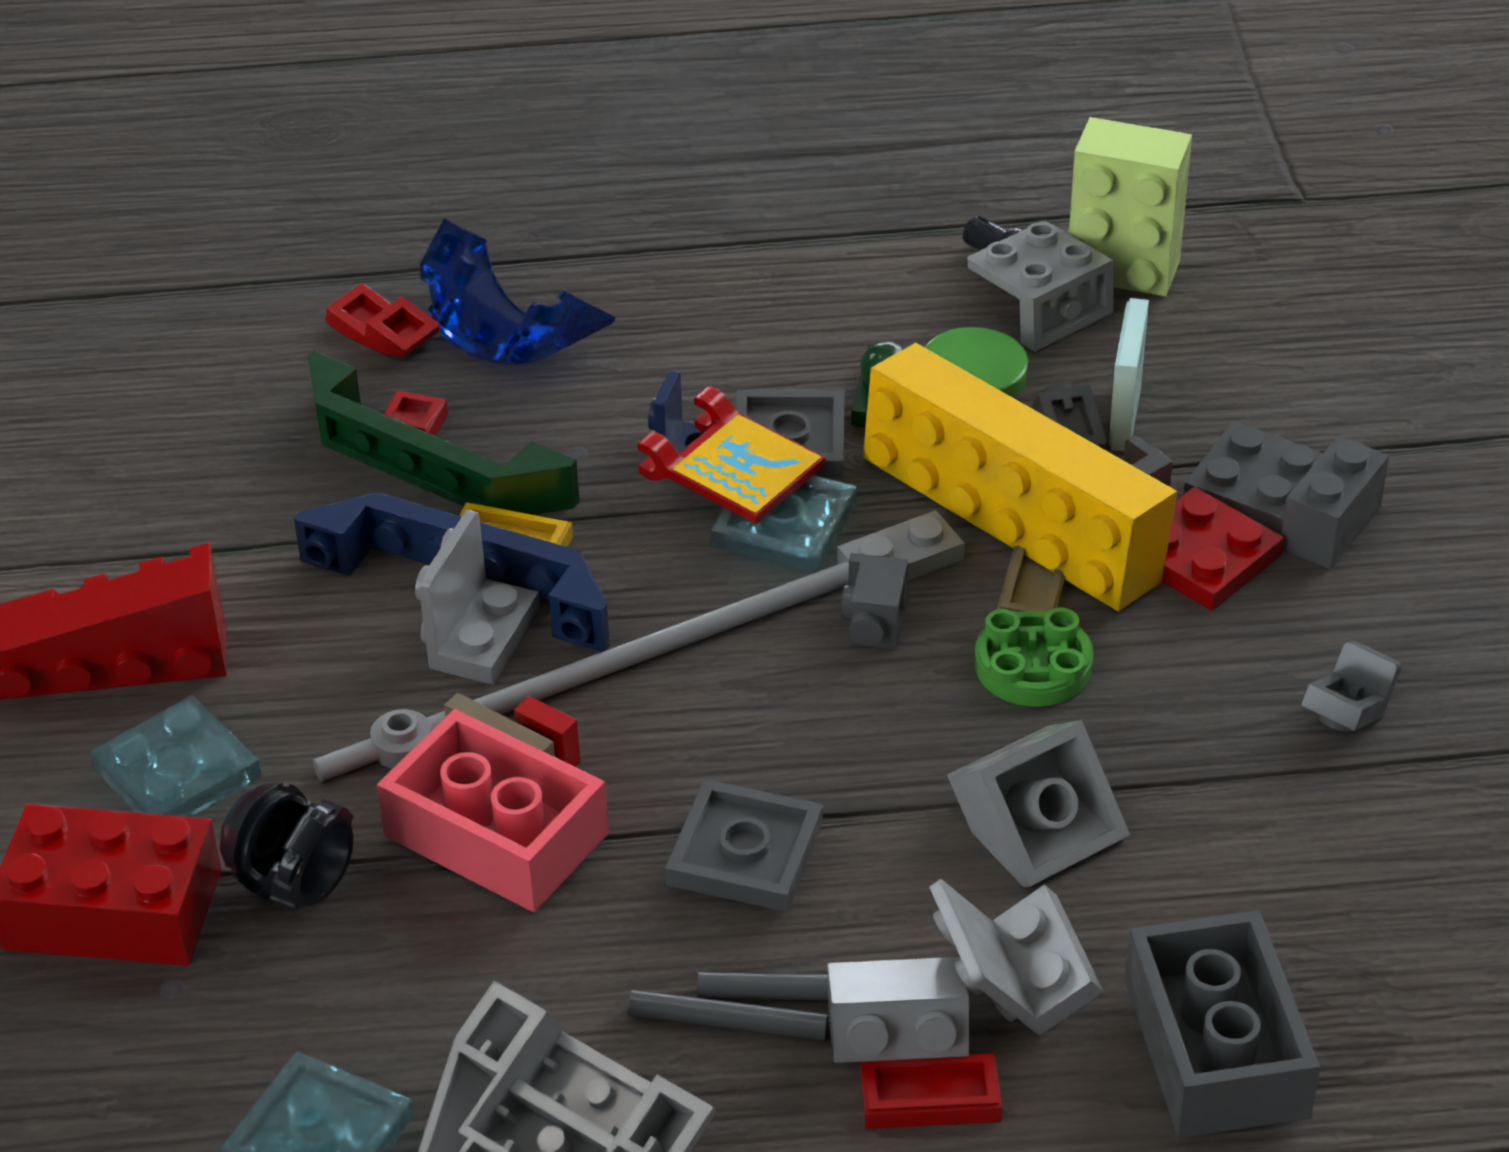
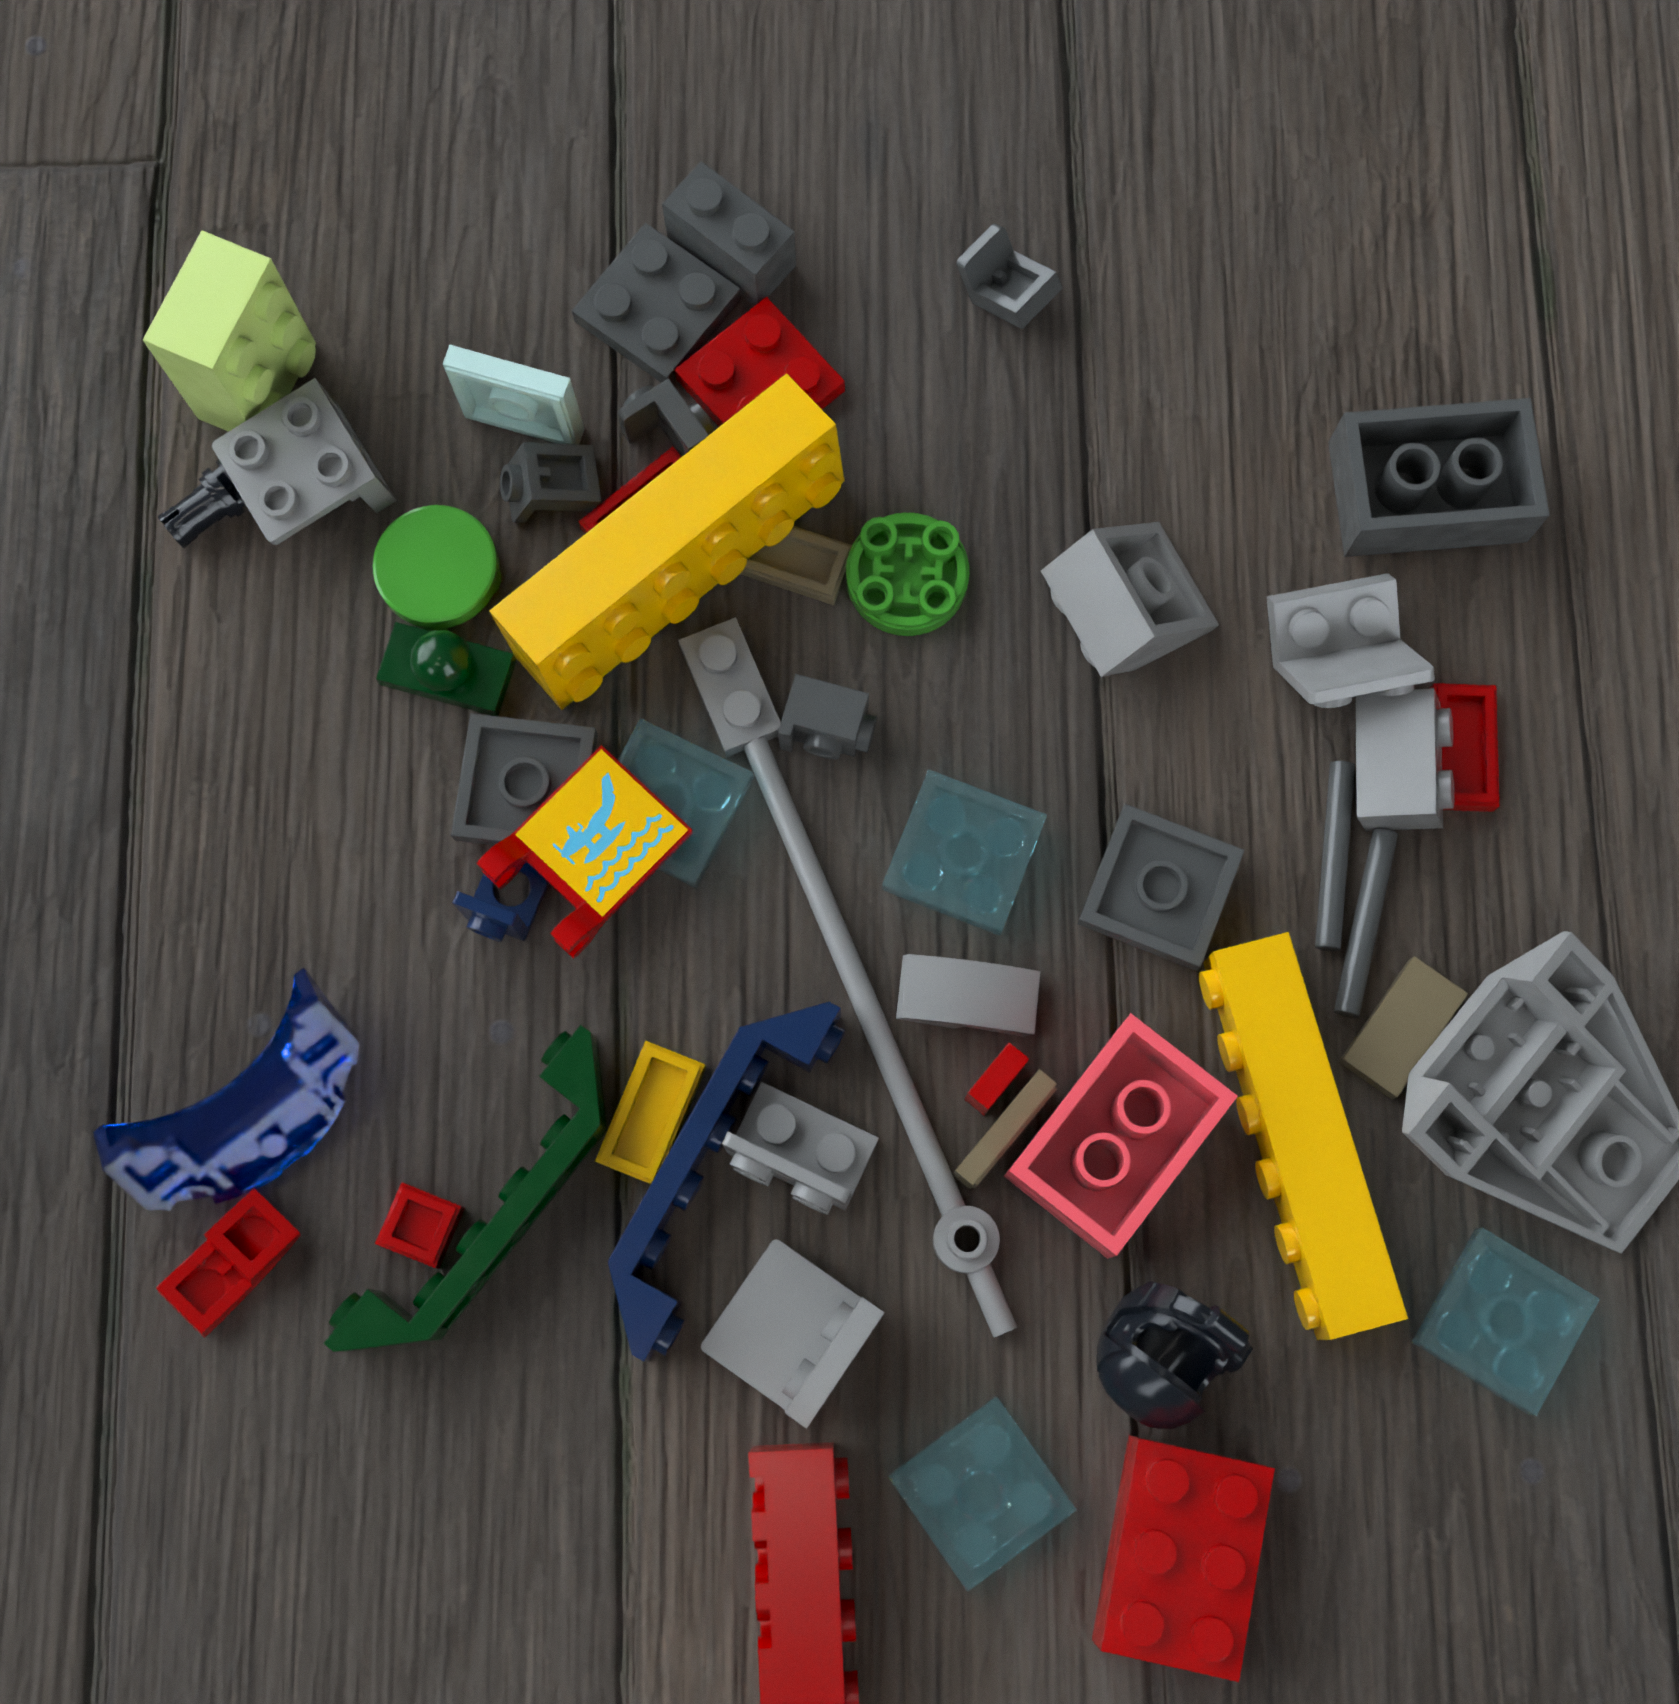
camera: 85 degrees left, 35 degrees up
(313, 629) = (791, 1331): none -> light grey bracket
(531, 946) = (1302, 1139): none -> yellow brick
(626, 721) = (968, 994): none -> light grey slope
(627, 1039) = (1403, 1027): none -> dark tan tile
(762, 706) = (964, 852): none -> clear light blue plate

